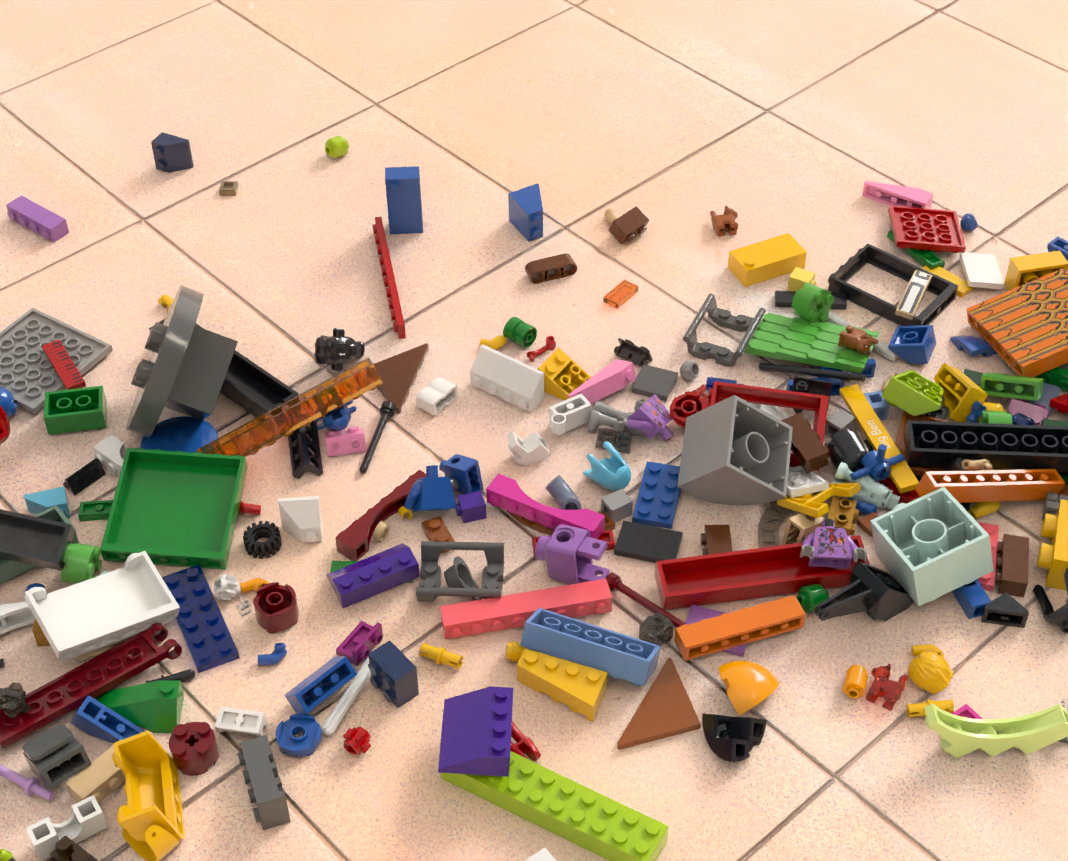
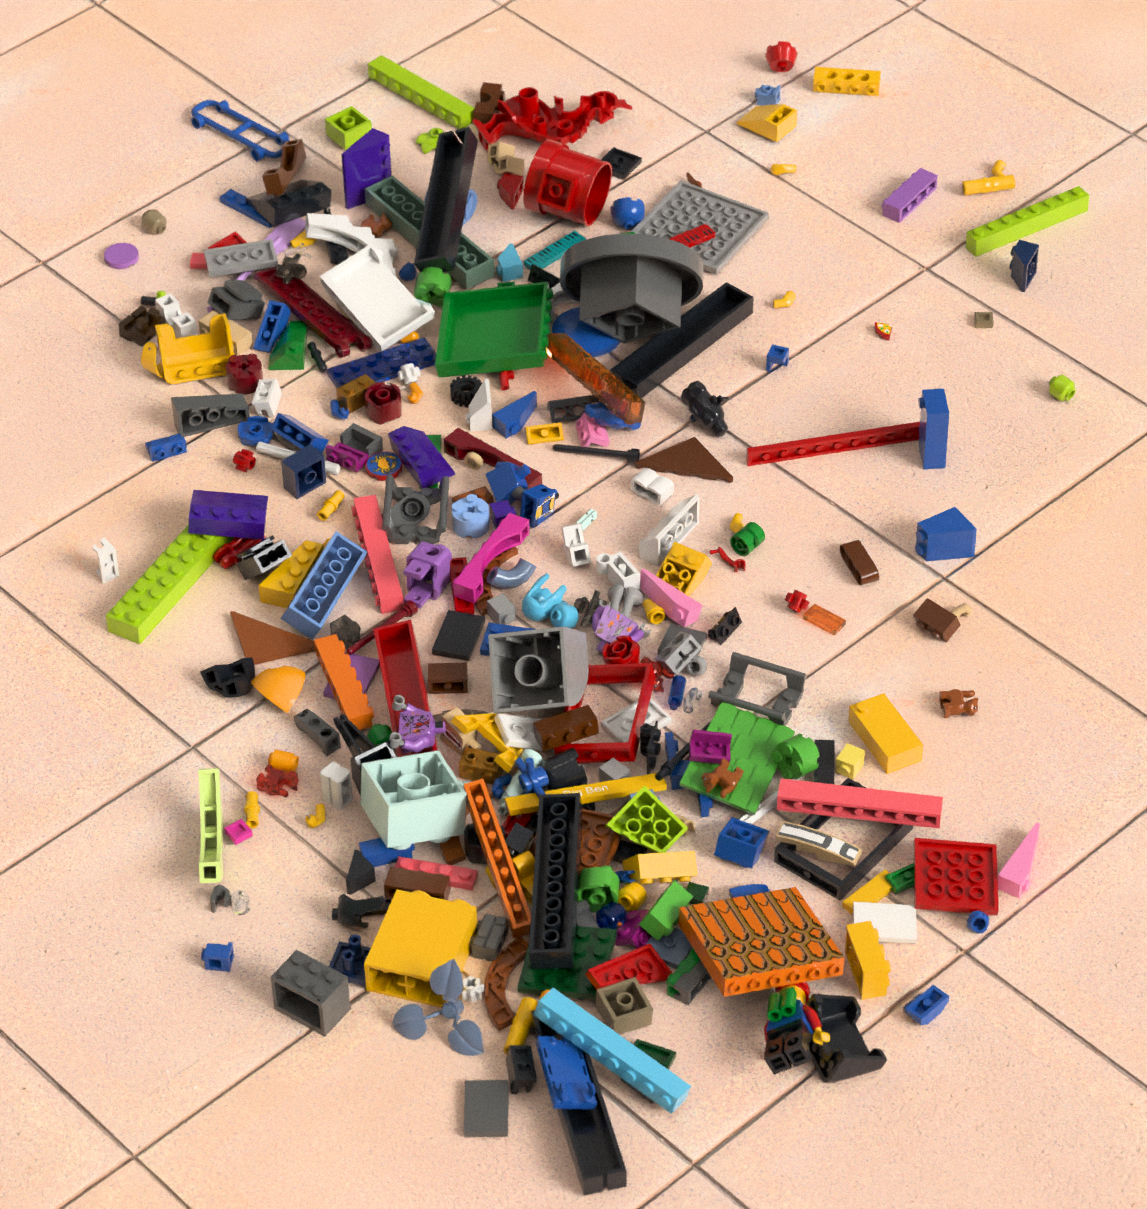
camera: 90 degrees right, 0 degrees up
(16, 169) = (997, 167): none -> yellow arm
(34, 468) = (554, 251): none -> teal tile
(39, 173) = (988, 184): none -> yellow axle
(103, 153) = (1027, 221): none -> lime brick
(229, 244) = (883, 330): none -> tile
(252, 634) = (353, 393): none -> pearl gold brick
(260, 306) = (777, 355): none -> blue panel
(302, 488) = (515, 415): none -> blue slope
(312, 832) = (166, 447): none -> blue bracket
(336, 628) = (362, 439): none -> dark grey panel
(339, 479) = (544, 433): none -> yellow slope
(375, 609) = (383, 464): none -> tile
(475, 526) = (470, 517): none -> light blue brick
(482, 448) = (587, 518): none -> light aqua axle
(547, 703) = (262, 557): none -> black brick
(604, 304) = (797, 601): none -> red gear
(615, 398) = (654, 612): none -> yellow cone
(631, 454) = (564, 615): none -> medium azure head
(686, 372) = (678, 652): none -> light grey brick
(724, 373) = (688, 699): none -> clear arm
(805, 653) = (318, 730): none -> dark grey leg
(822, 345) = (709, 746): none -> magenta bracket
(867, 266) = (859, 803): none -> coral brick
(896, 626) = (336, 785): none -> white brick
(930, 672) = (289, 810): yellow hair -> none
(976, 465) = (522, 850): tan arm -> none

